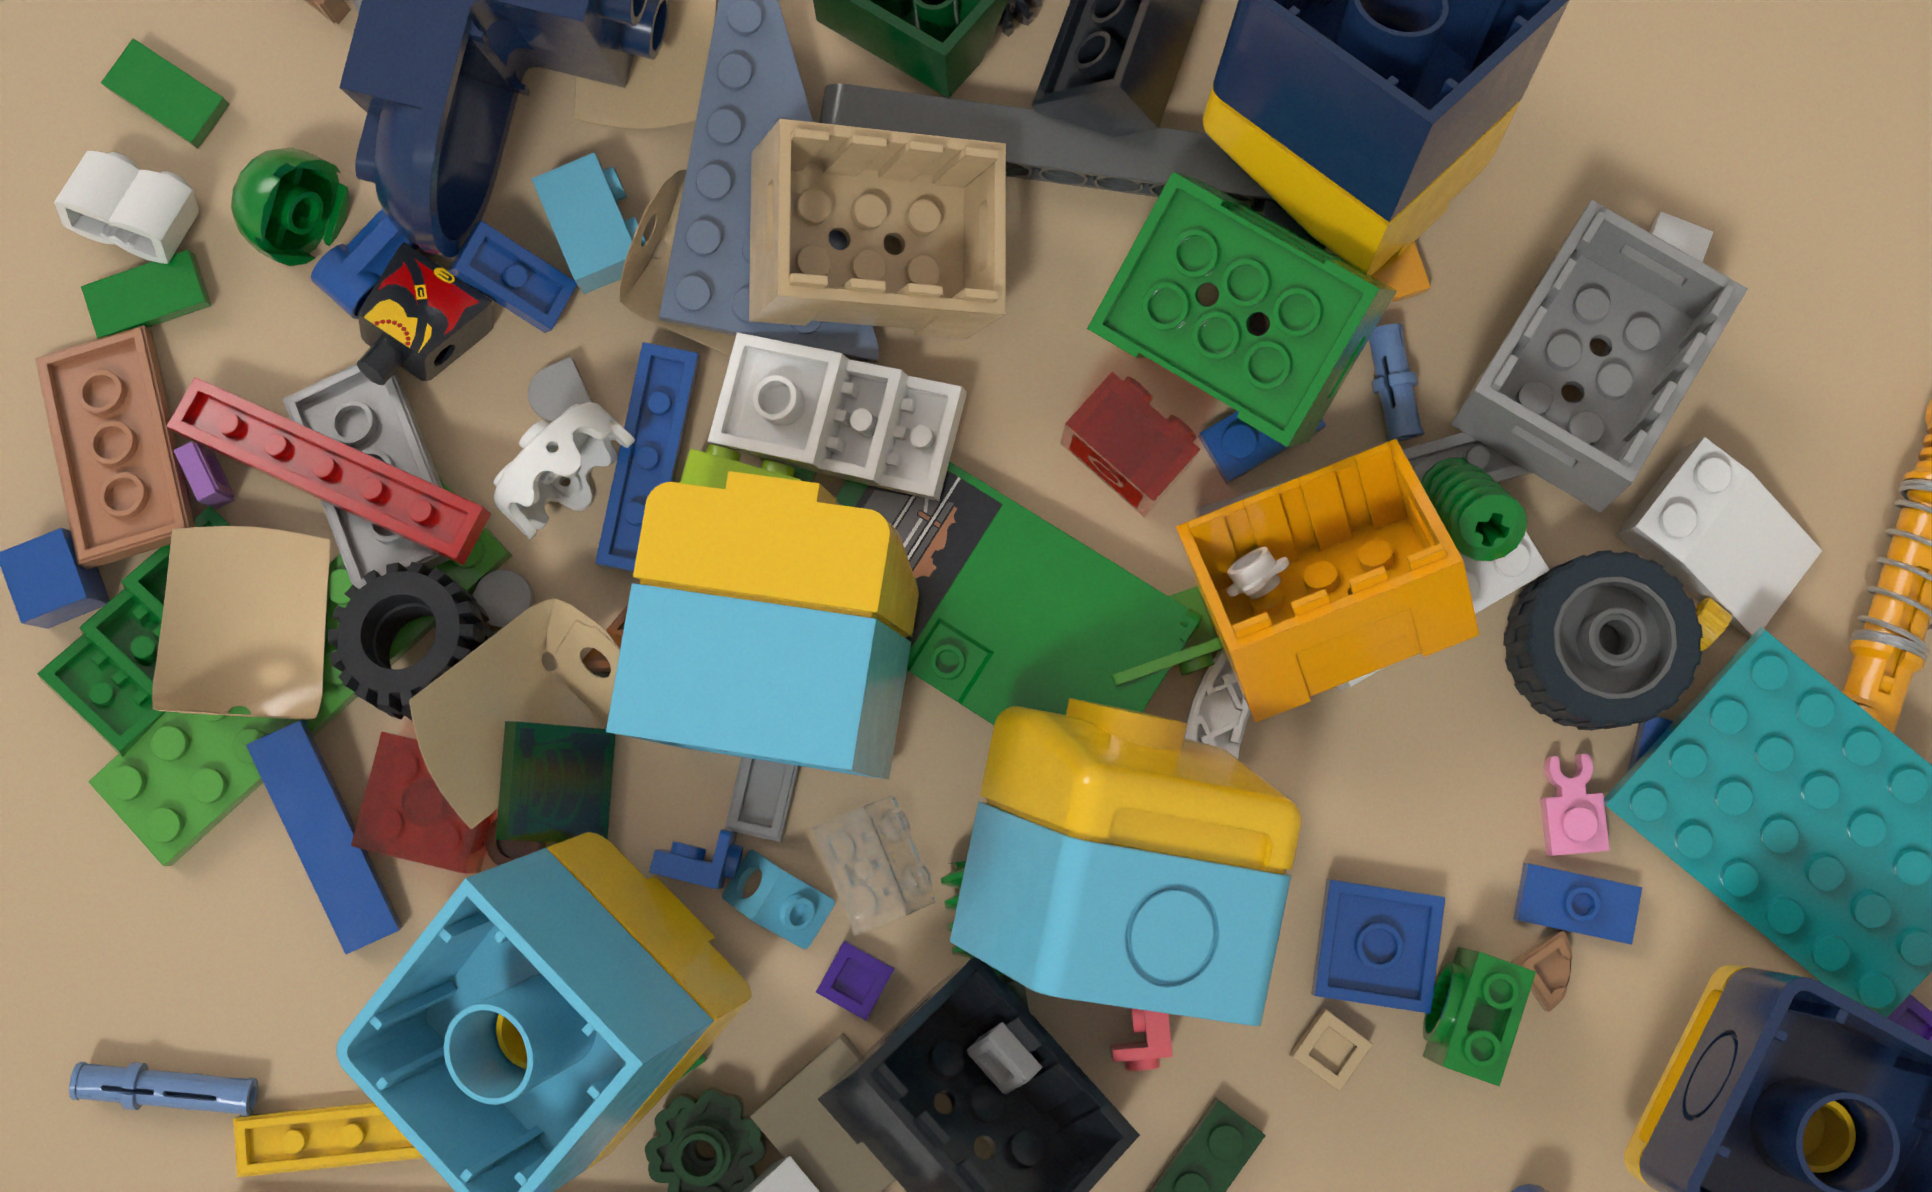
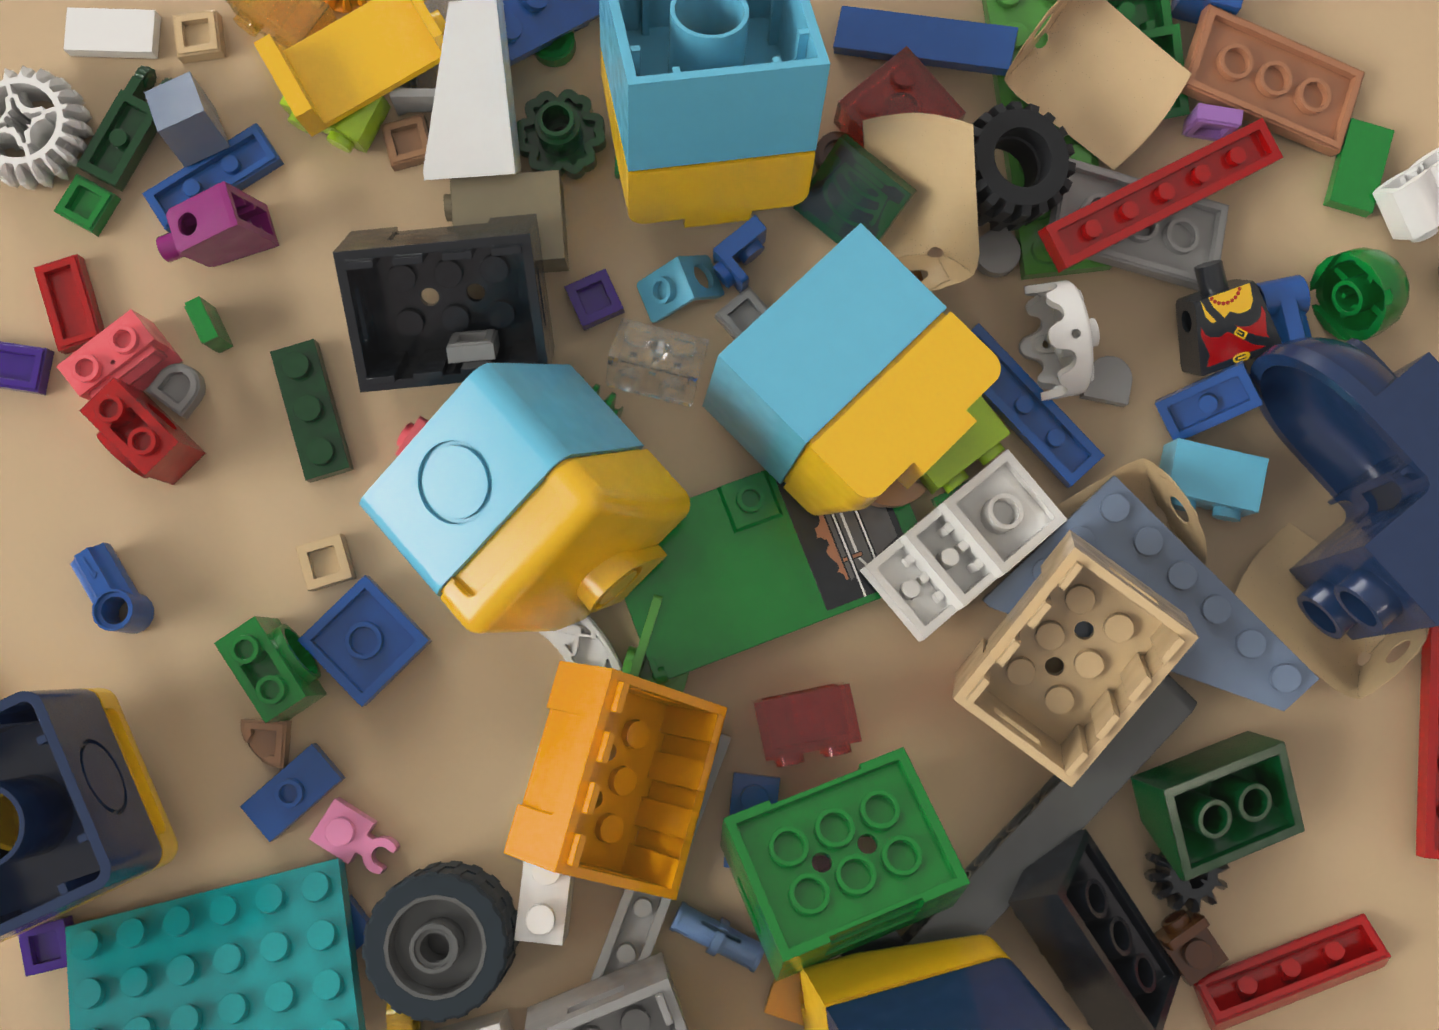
camera: 125 degrees right, 0 degrees up
(1256, 573) = (657, 738): white plate -> none
(1475, 509) = (591, 917): green piece -> none

